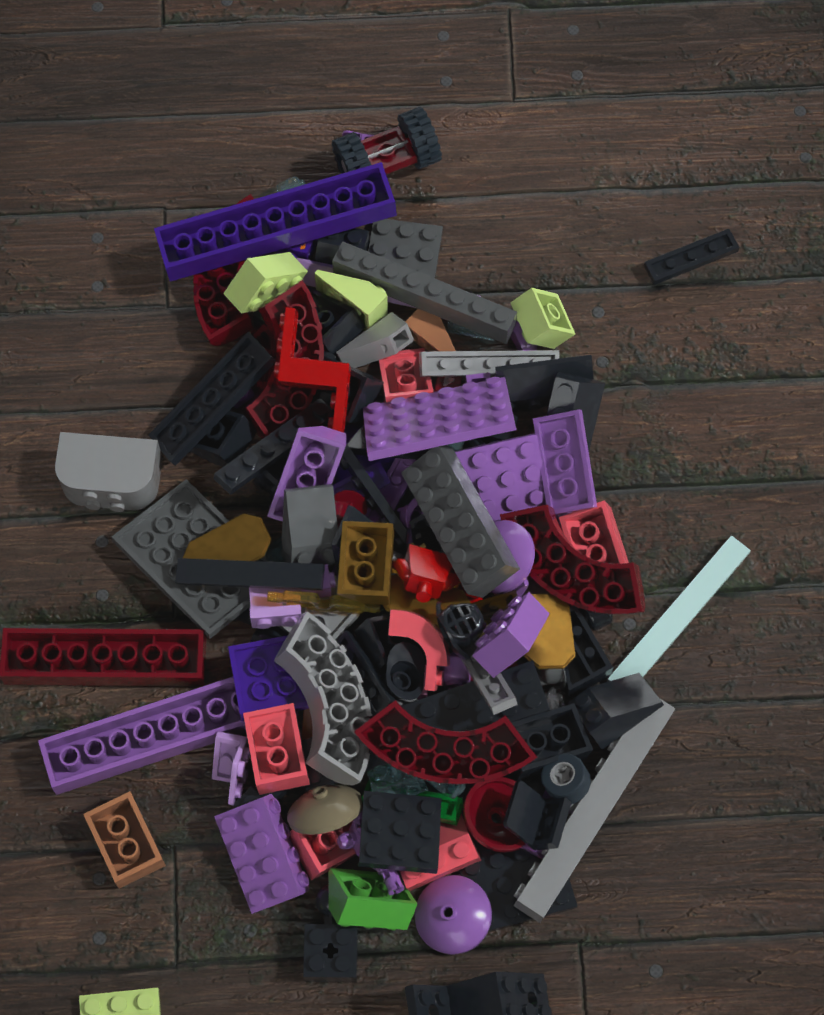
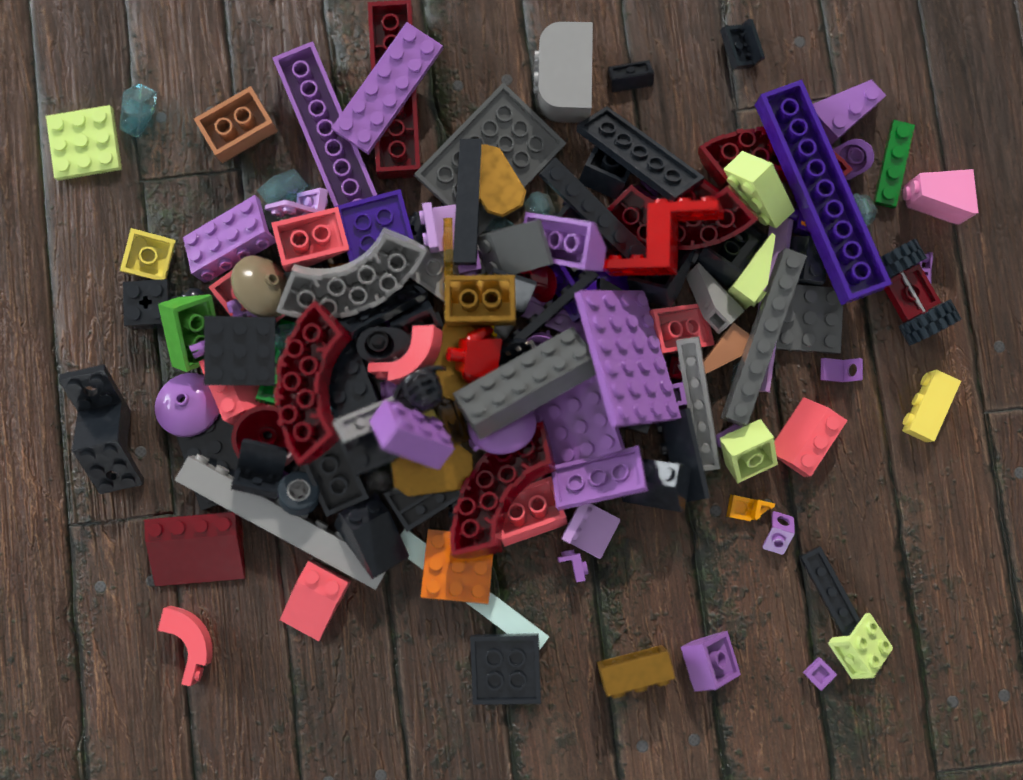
camera: 85 degrees right, 15 degrees up
(90, 960) = (137, 109): none -> clear light blue slope
(96, 291) = (742, 45): none -> black bracket
(106, 658) = (387, 88): none -> medium lavender plate
(114, 409) = (631, 76): none -> black slope
(181, 192) = (847, 108): none -> medium lavender wedge
(206, 793) = (282, 187): none -> clear light blue slope
(234, 188) = (857, 155): none -> medium lavender piece
(243, 159) = (893, 164): none -> green plate
(258, 507) = (539, 203): none -> clear light blue head
(271, 954) = (147, 255): none -> light yellow slope
(286, 113) = (943, 195): none -> bright pink slope
(461, 230) = (838, 370): none -> medium lavender bracket
(504, 147) = (930, 405): none -> light yellow brick
(529, 262) = (808, 436): none -> coral slope
(602, 330) = (747, 508): none -> light orange slope
(618, 485) = (590, 529): none -> lavender bracket
(620, 912) = (195, 548): none -> dark red slope
(631, 298) = (779, 535): none -> medium lavender bracket
(655, 500) = (579, 567): none -> medium lavender bracket
(658, 632) = (453, 577): none -> orange plate
(684, 781) = (314, 599): none -> coral slope
(726, 914) = (194, 635): none -> coral arch
(754, 232) = (863, 650): none -> yellowish green bracket
(761, 377) = (710, 661): none -> medium lavender slope
(764, 580) = (505, 669): none -> black plate
(769, 447) = (636, 671): none -> pearl gold brick
(775, 274) = (819, 673): none -> medium lavender plate

